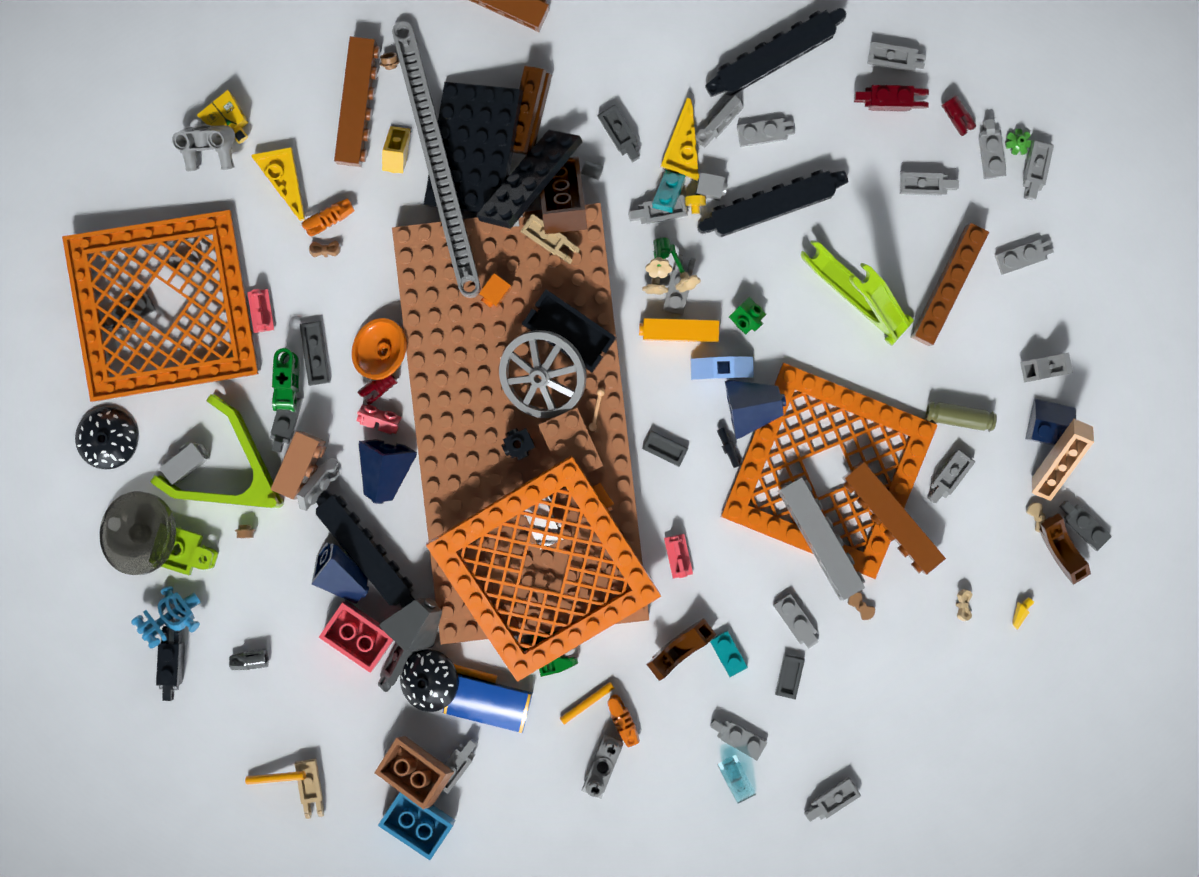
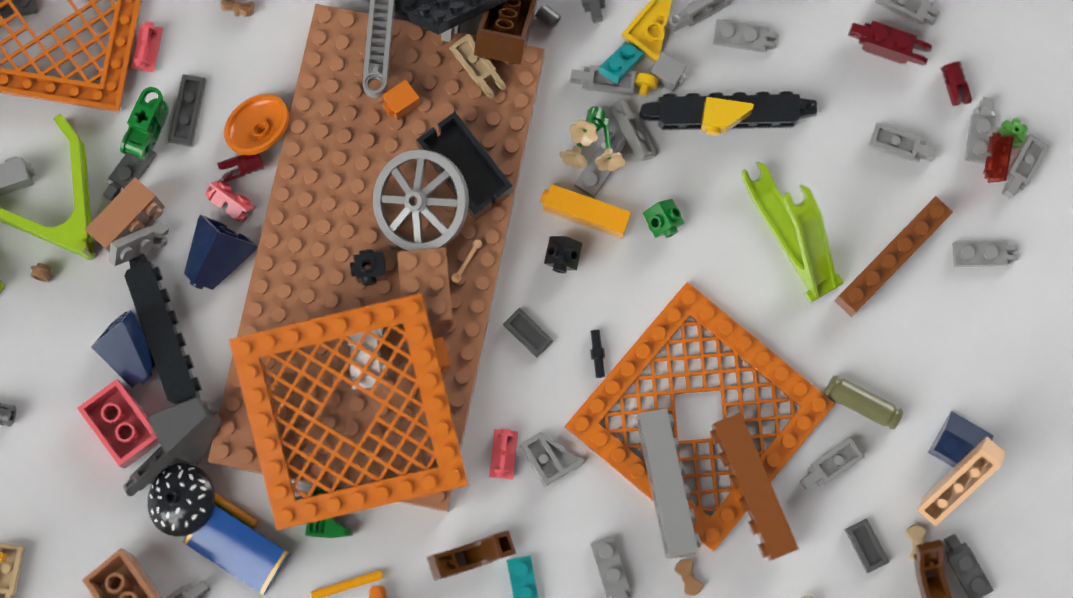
camera: 20 degrees right, 10 degrees down
(673, 374) = (562, 253): none -> black brick
(697, 247) = (633, 131): none -> light grey hinge
(717, 547) = (548, 458): none -> light grey wing
(722, 367) = (618, 264): light blue slope -> none
(753, 405) = (638, 314): dark blue slope -> none
(770, 212) = (723, 115): none -> yellow slope
(998, 533) = (866, 546): none -> dark grey tile
(1013, 162) = (997, 165): none -> clear red hinge
(1046, 367) = (973, 379): light grey brick -> none

